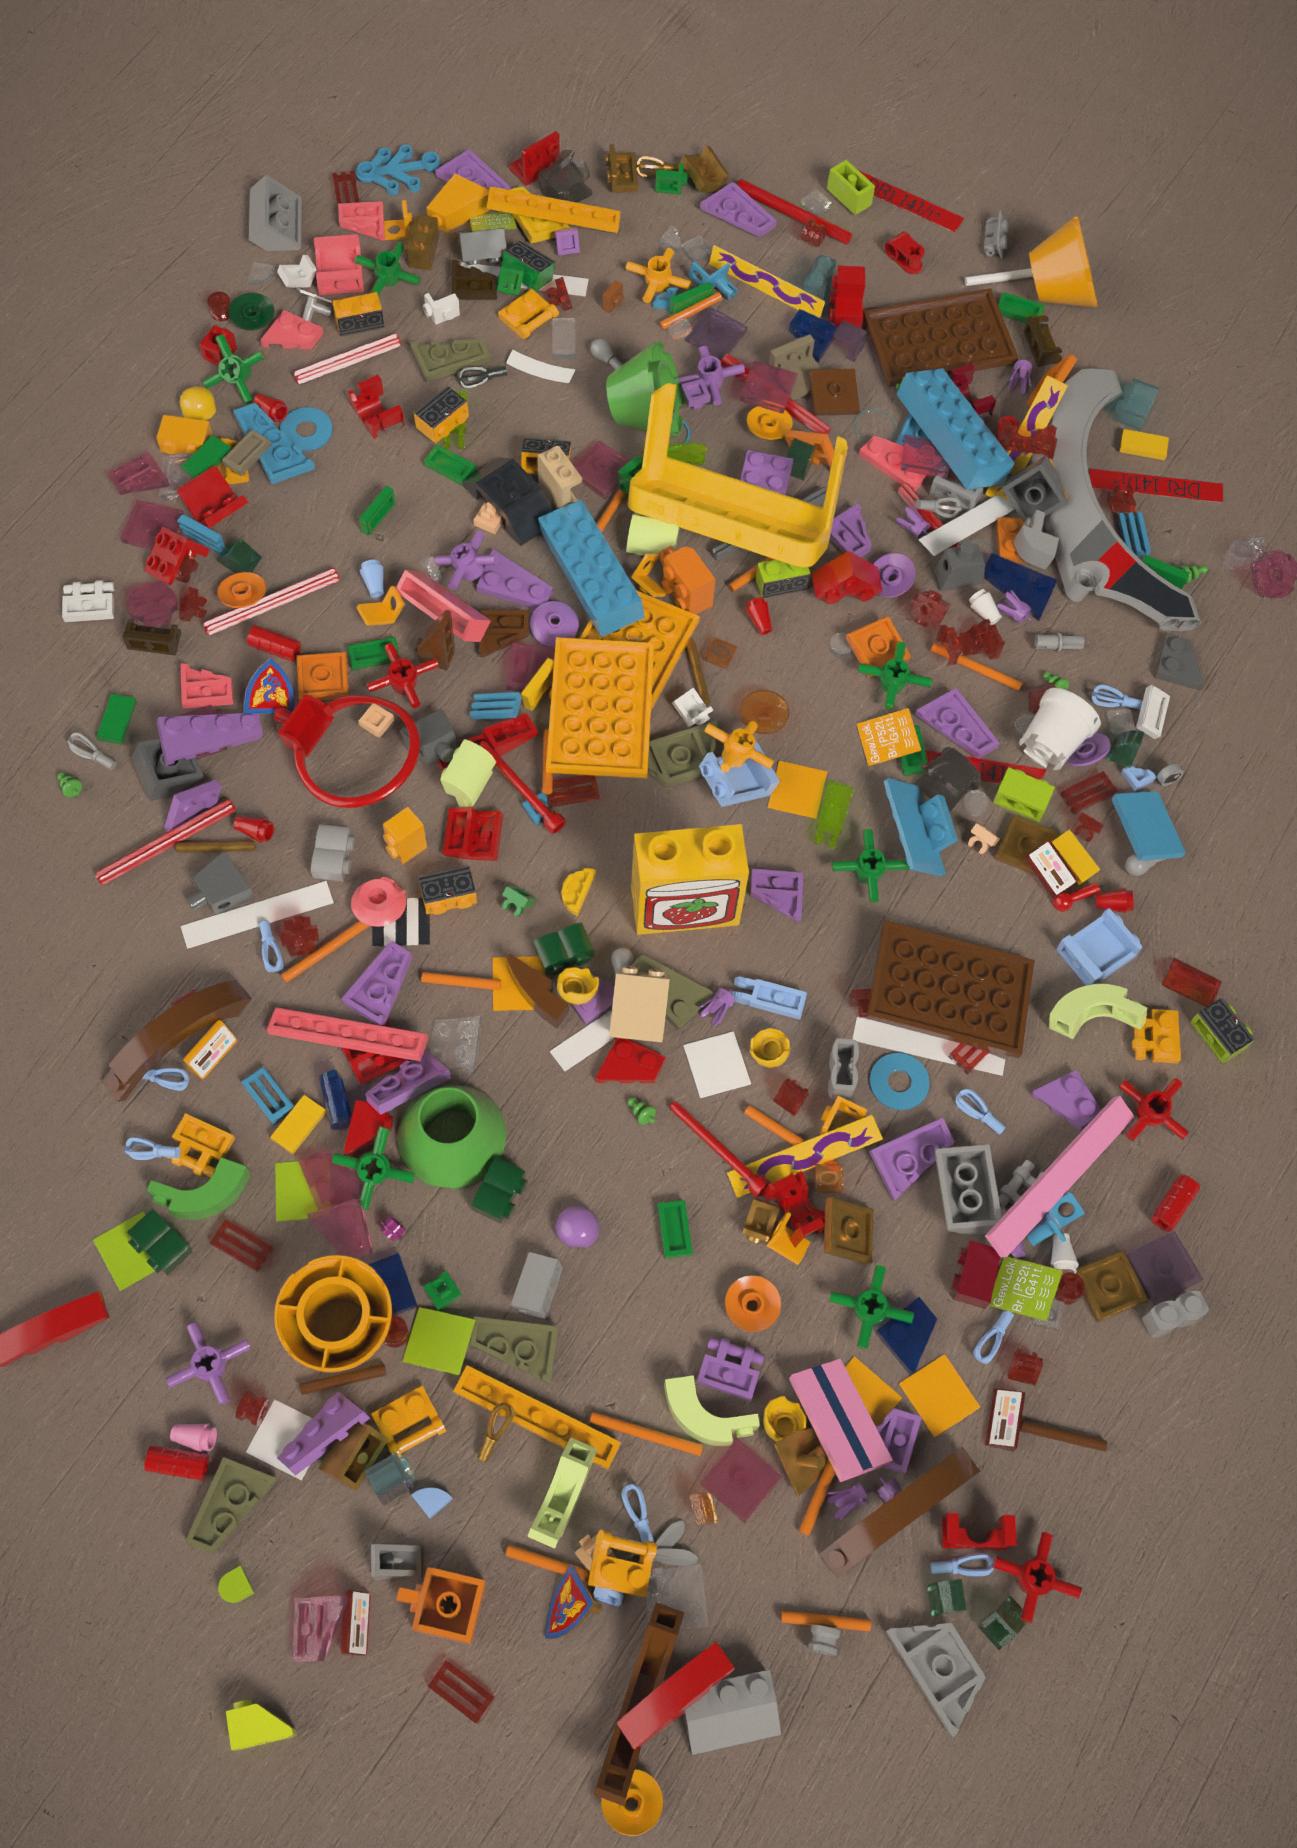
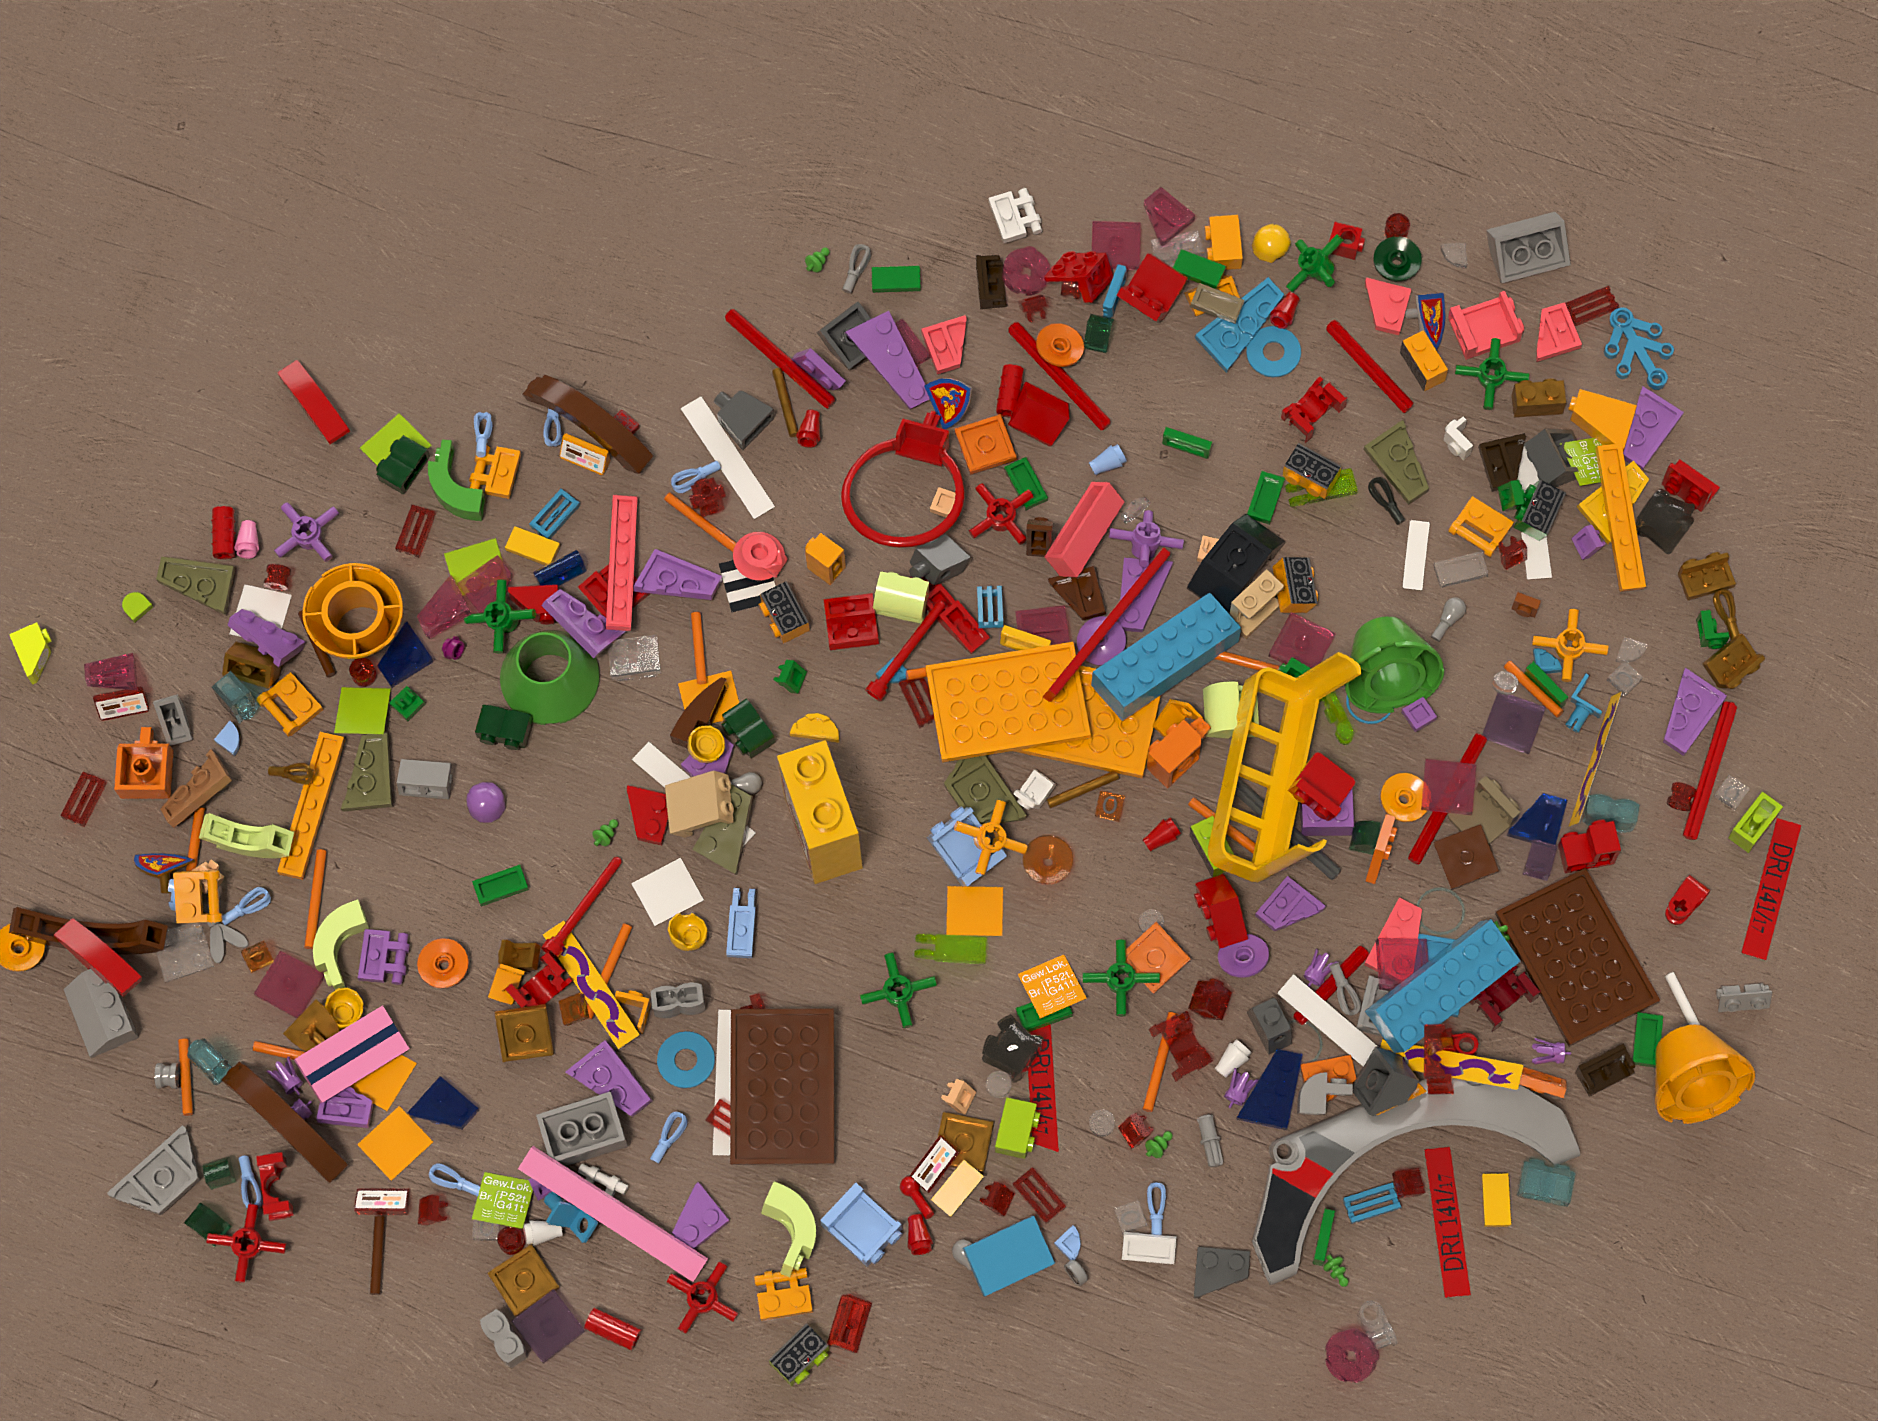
camera: 85 degrees right, 5 degrees up
(298, 275) = (1459, 288): white bracket -> none
(309, 621) = (1039, 414): none -> red slope
(332, 852) = (799, 502): light grey brick -> none
(382, 612) = (1070, 475): light orange bracket -> none
(403, 224) = (1564, 372): light orange bracket -> none
(485, 1541) = (202, 786): none -> medium nougat wing
(552, 606) = (1106, 625): none -> red tile
(712, 373) = (1455, 721): medium lavender bar -> none
(721, 1001) = (728, 879): medium lavender piece -> none
(758, 465) = (1322, 786): none -> red bracket
(779, 891) = (854, 912): medium lavender wing -> none
(791, 1096) = (643, 961): clear red tile -> none
(821, 1583) = (208, 1060): none -> clear light blue brick
(873, 1296) = (464, 1070): green bar -> none
(921, 826) = (950, 1028): dark azure bracket -> none
(959, 722) = (1086, 1052): medium lavender wing -> none
(976, 1275) = (504, 1154): dark red brick -> none
(1059, 727) = (1092, 1146): white piece -> none
(1090, 750) = (1083, 1182): medium lavender dish -> none
(1125, 747) = (1093, 1222): clear green brick -> none

